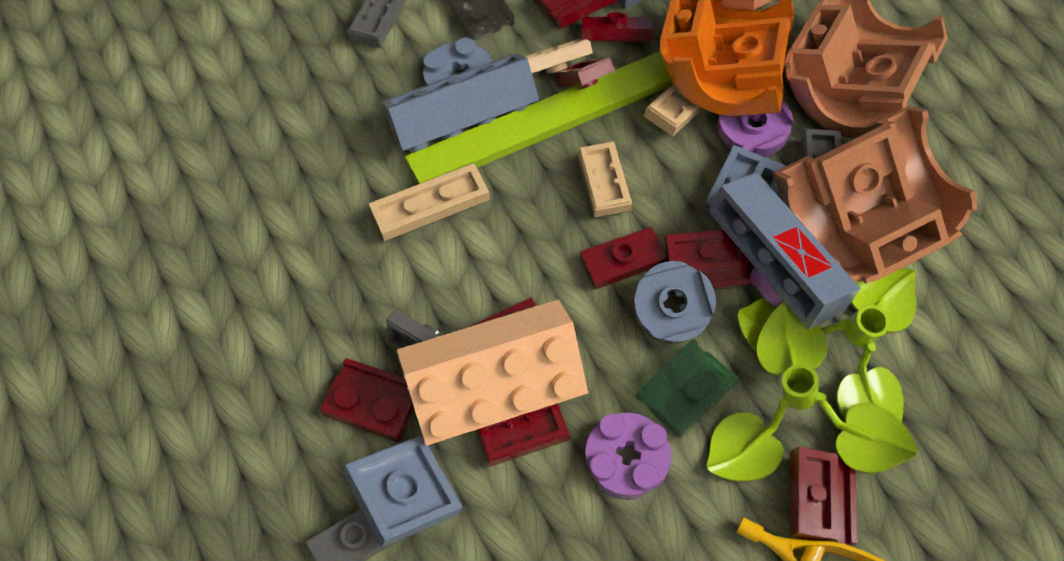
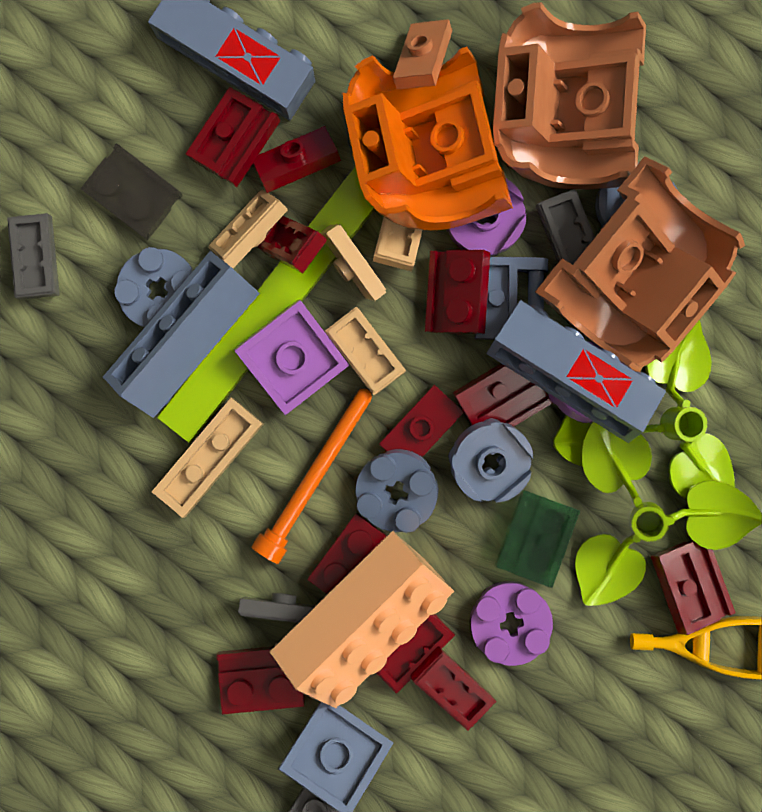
camera: 25 degrees left, 25 degrees up
(445, 289) = (273, 541): none -> orange piece
(540, 154) = (291, 357): none -> medium lavender plate
(544, 484) = (453, 688): none -> dark red plate
(577, 270) = (418, 482): none -> sand blue plate
(625, 105) = (352, 264): none -> tan plate
(705, 164) = (457, 291): none -> dark red plate

